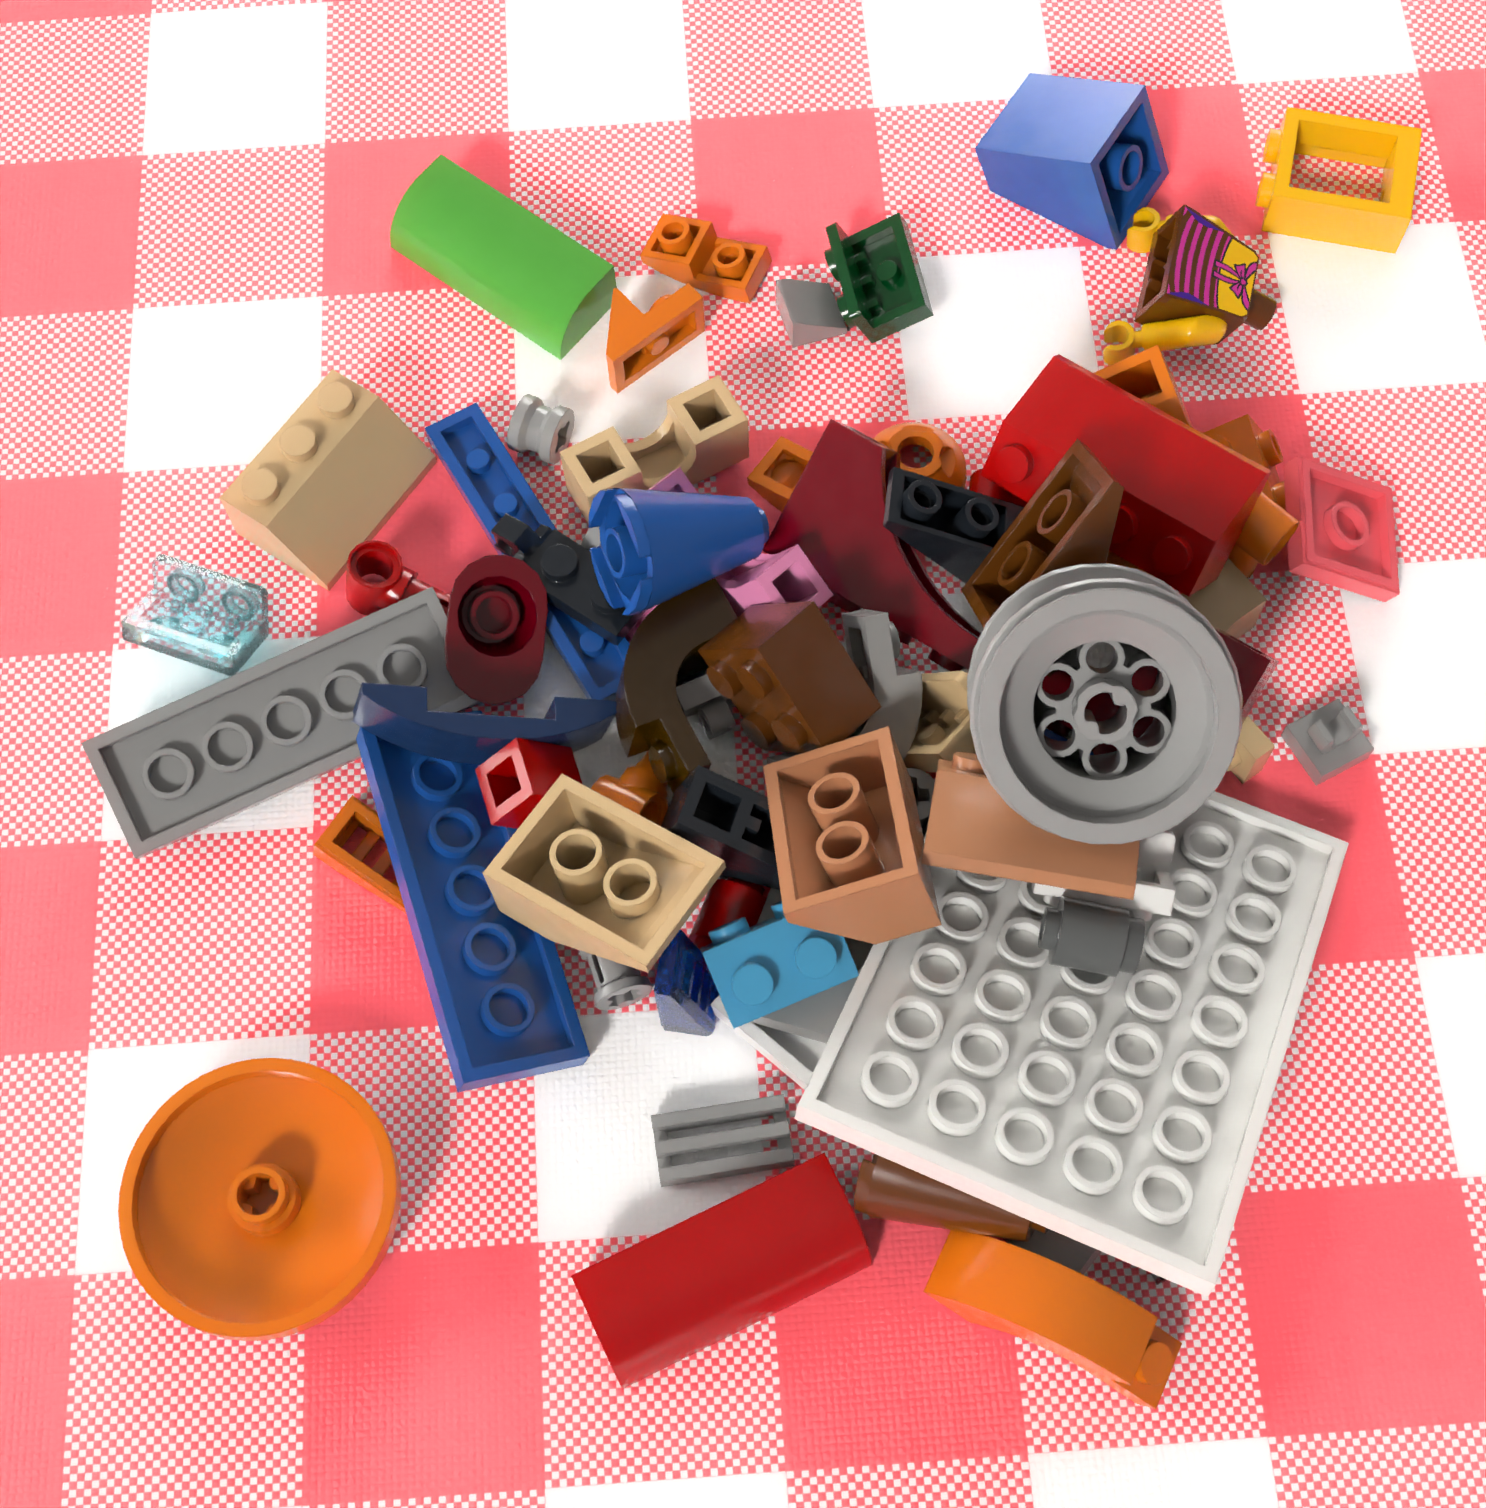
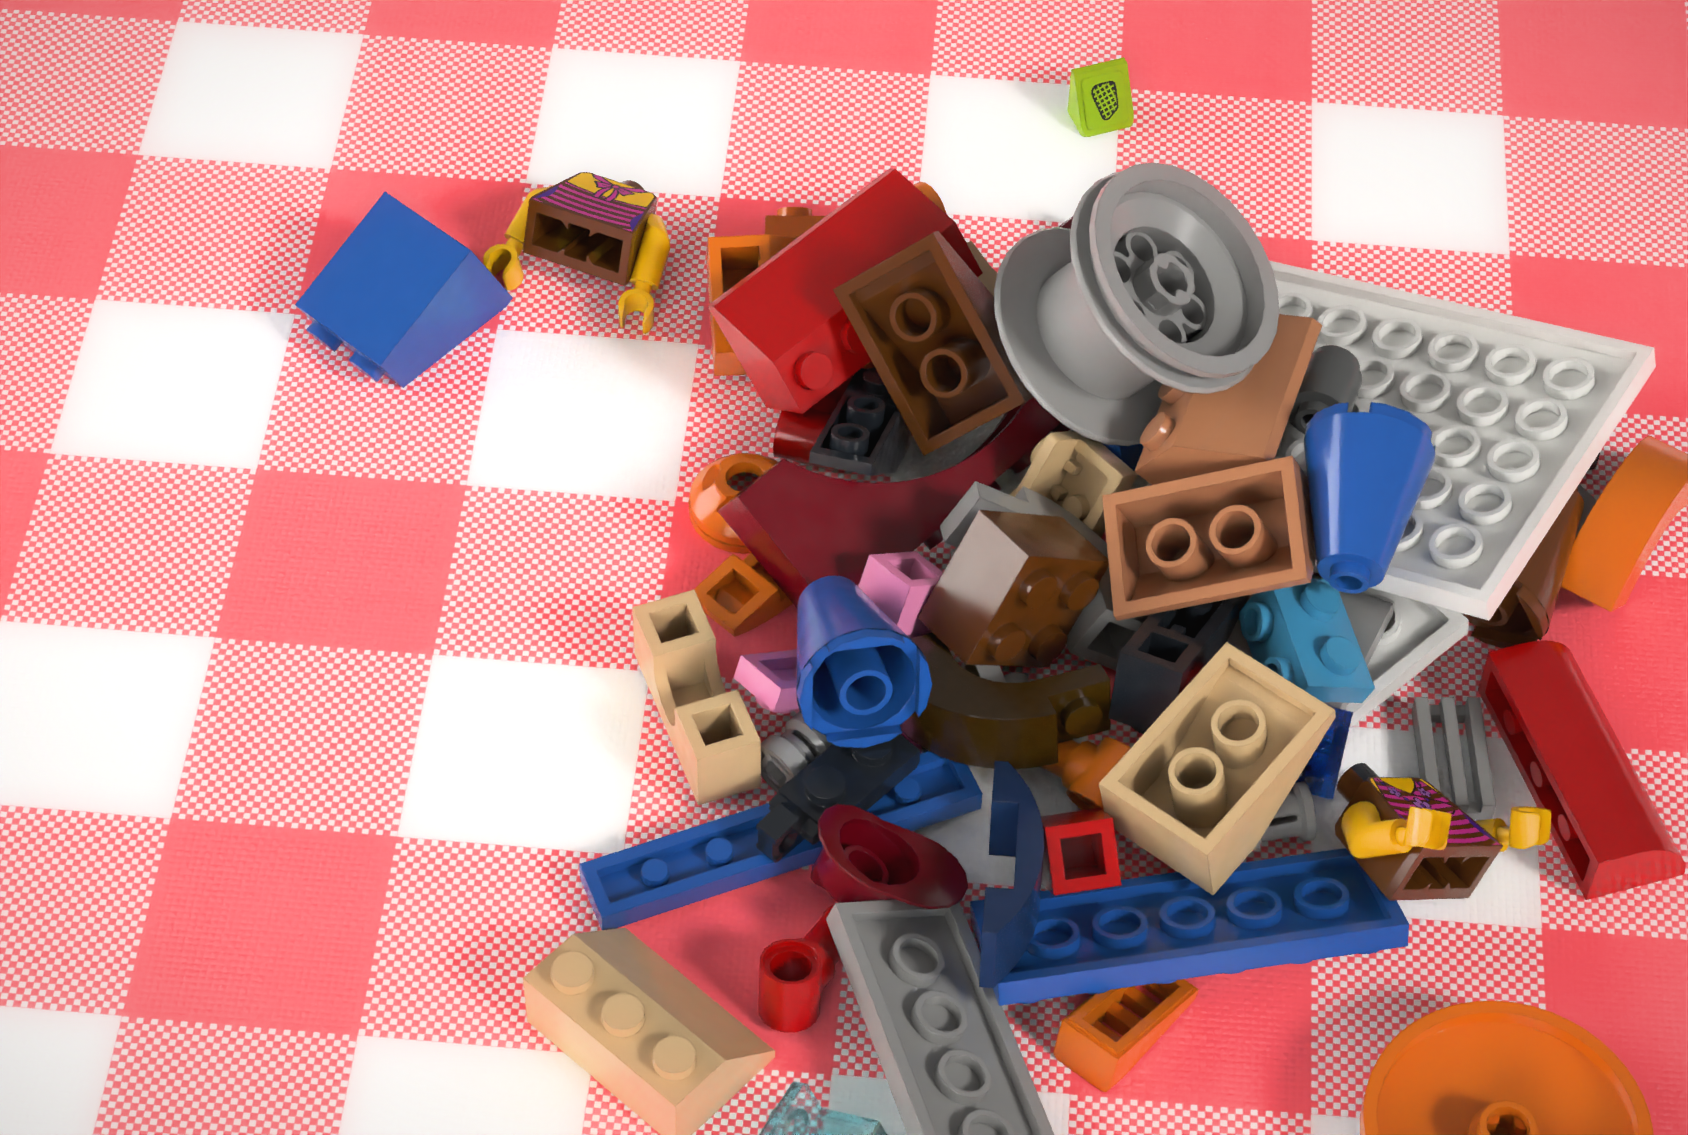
camera: 85 degrees left, 15 degrees down
(502, 257) = (374, 826): bright green brick -> none
(540, 428) = (626, 809): light grey wheel -> none
(586, 1096) = (1420, 841): none -> torso
(645, 340) = (524, 703): orange slope -> none
(695, 255) = (429, 641): orange slope -> none
(808, 311) = (525, 560): light grey slope -> none
(878, 278) = (506, 482): dark green bracket -> none
(909, 965) = (1363, 488): none -> blue cone
(1333, 216) = (506, 66): yellow window -> none
(1343, 529) = (864, 165): coral tile -> none

